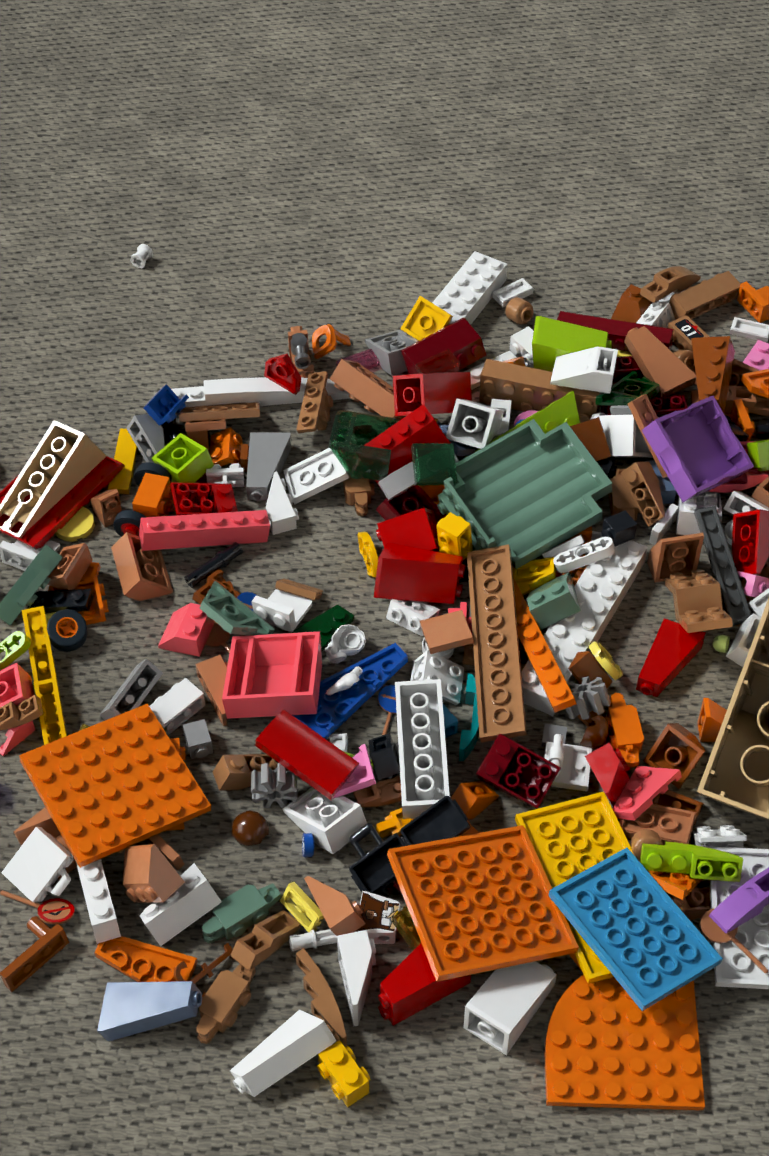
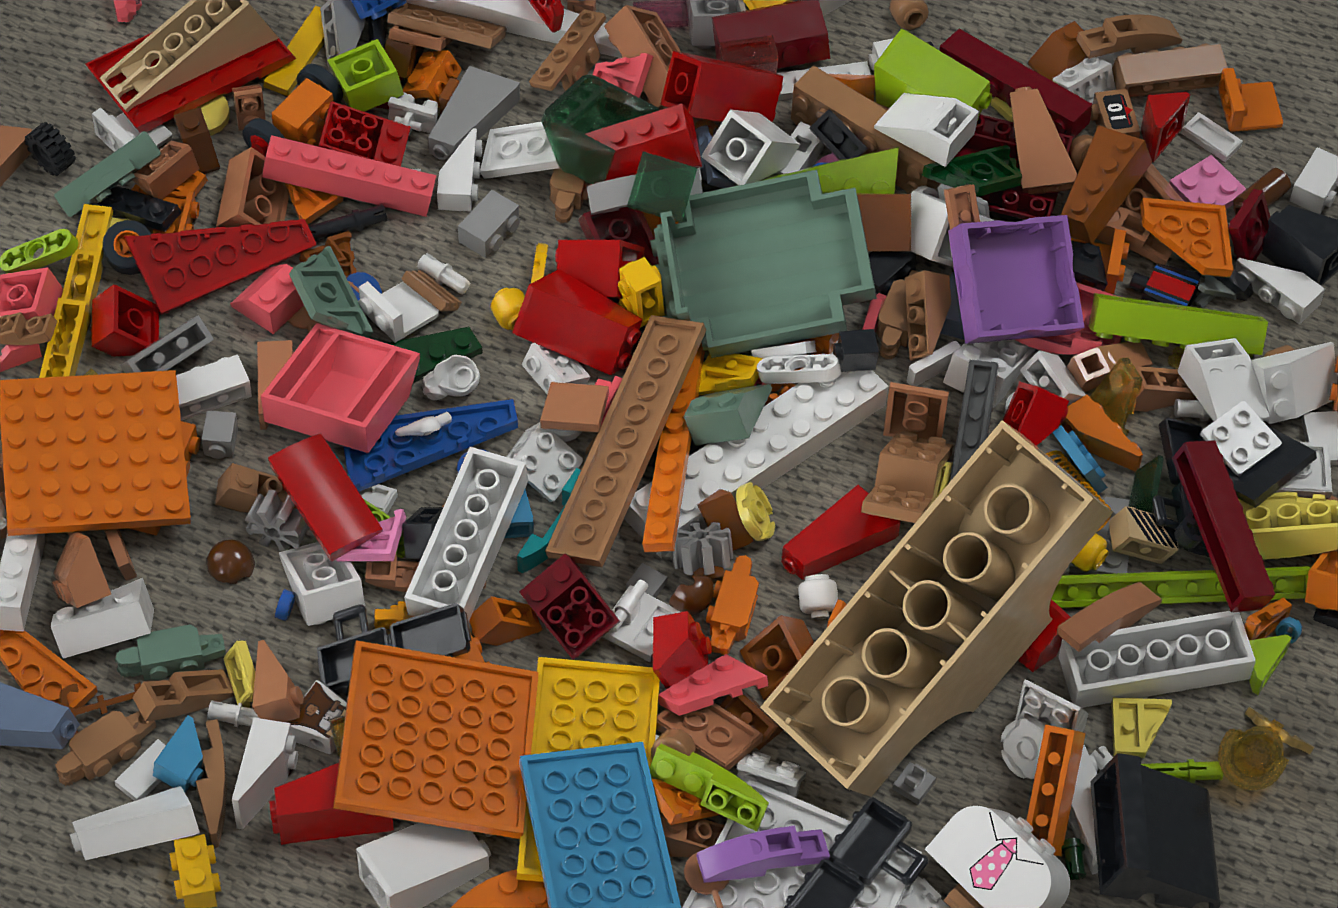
camera: 20 degrees right, 5 degrees up
(76, 533) = (195, 133): none -> reddish brown slope
(87, 684) = (123, 322): none -> red slope
(127, 621) = (201, 261): none -> red wing
(182, 558) = (311, 203): none -> orange wing
(265, 1008) = (138, 778): none -> white tile
(291, 988) = (181, 758): none -> dark azure slope
(301, 575) = (443, 273): none -> white axle
(316, 531) = (489, 224): none -> light grey brick
(361, 582) = (506, 306): none -> yellow head
(362, 403) = (626, 72): none -> coral wing
(524, 399) = (837, 137): none -> black slope
(607, 505) = (873, 311): none -> coral tile
(677, 703) = (818, 596): none -> white head
(719, 320) = (1163, 120): none -> red slope

